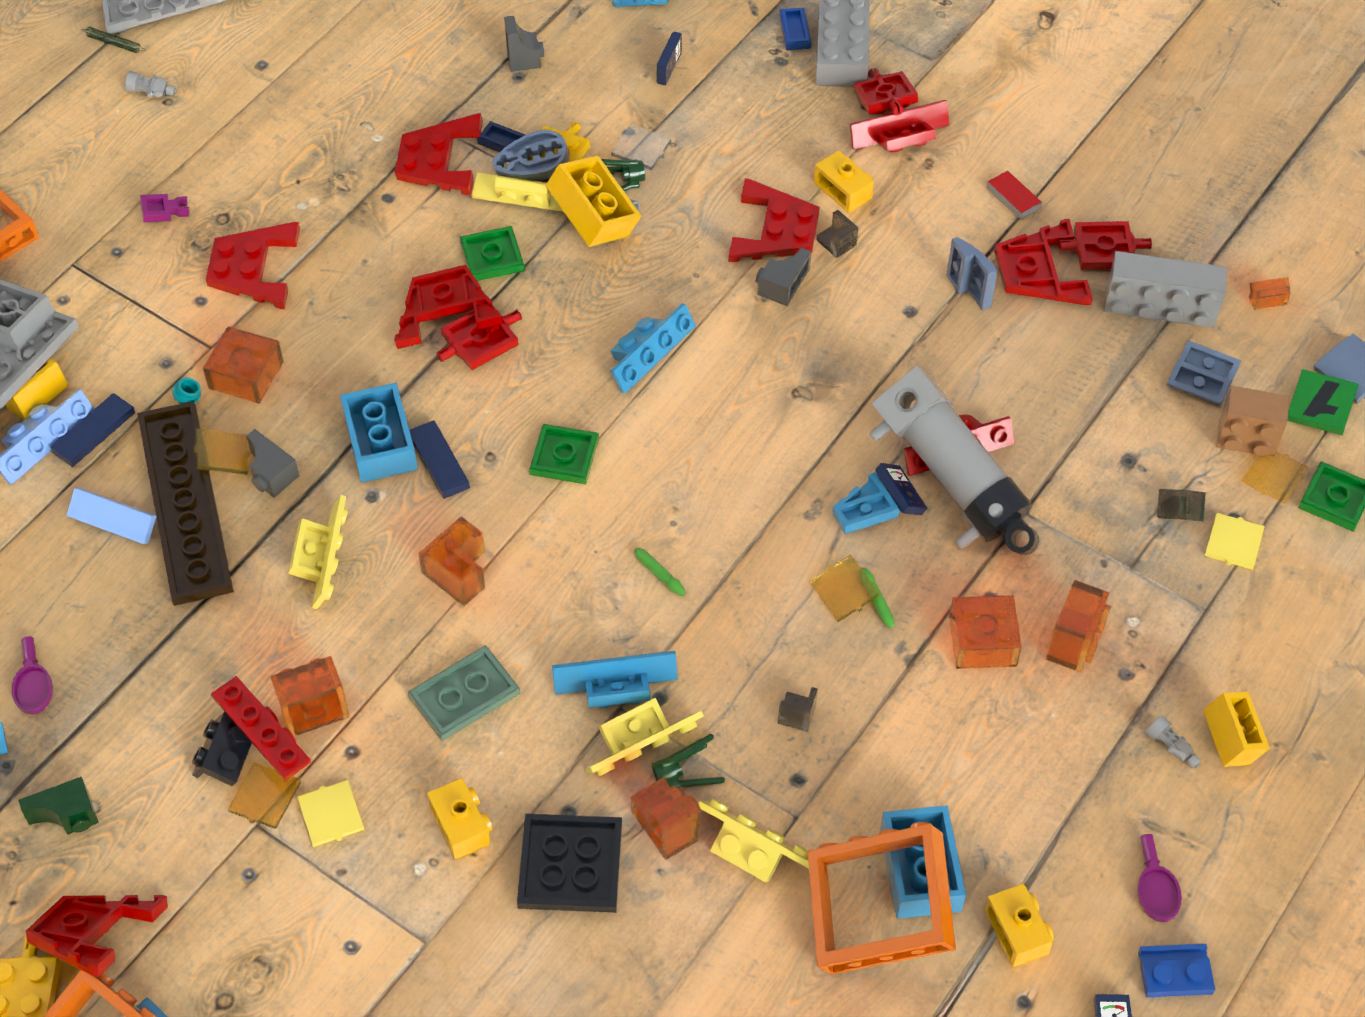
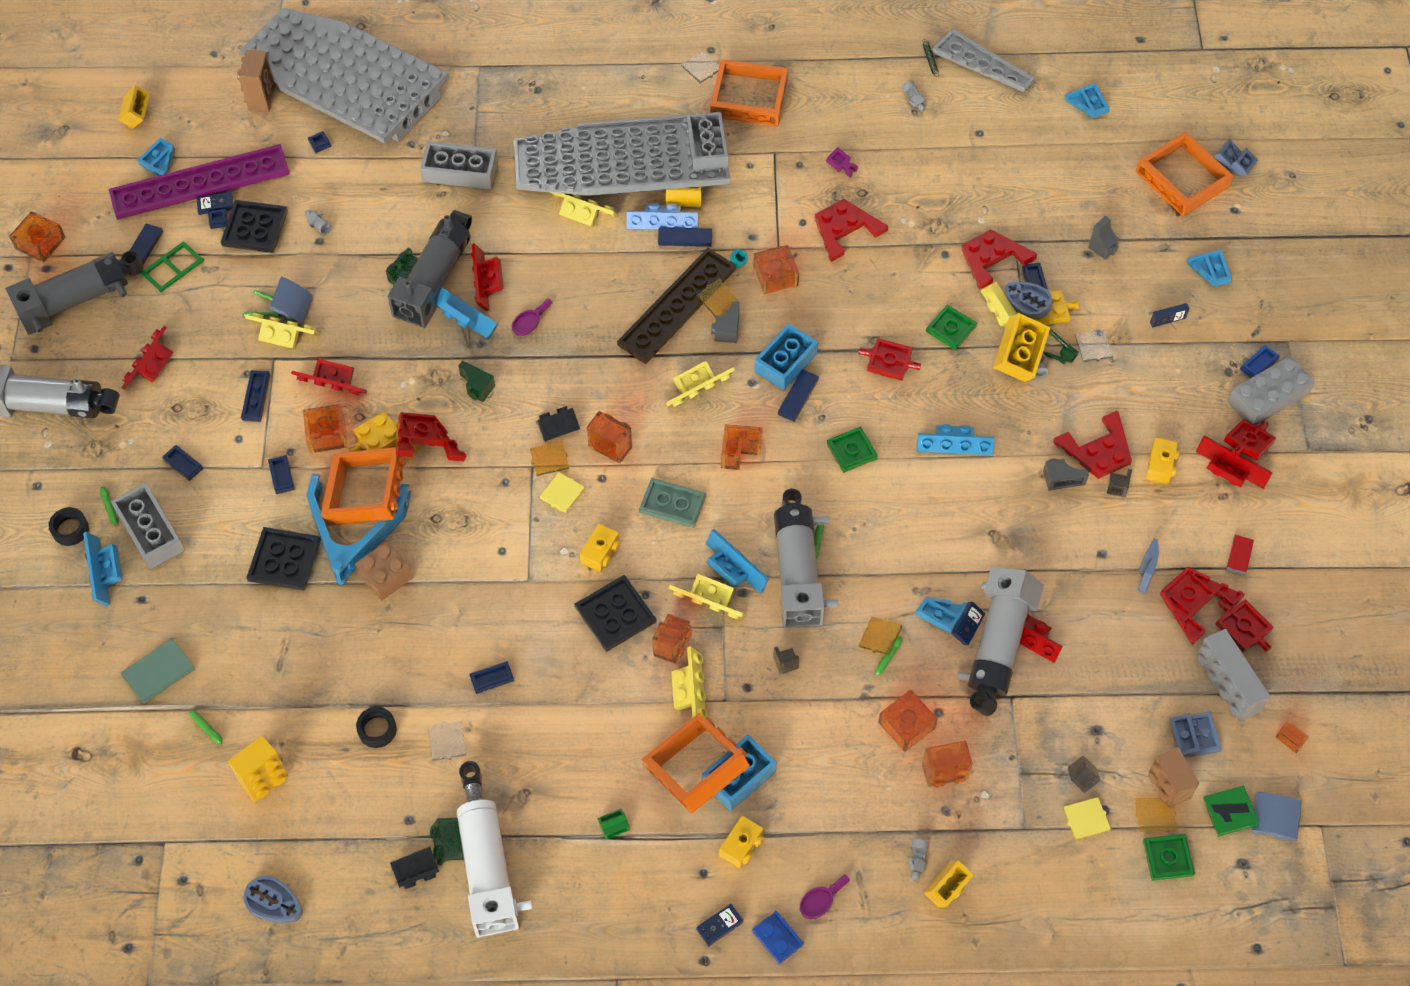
camera: 55 degrees right, 5 degrees up
(111, 515) = (642, 281): light blue tile -> none
(261, 728) = (575, 434): red bracket -> none
(443, 295) = (898, 323): red wing -> none
(670, 768) = (702, 623): dark green plant -> none
(732, 631) = (801, 592): none -> light grey piece

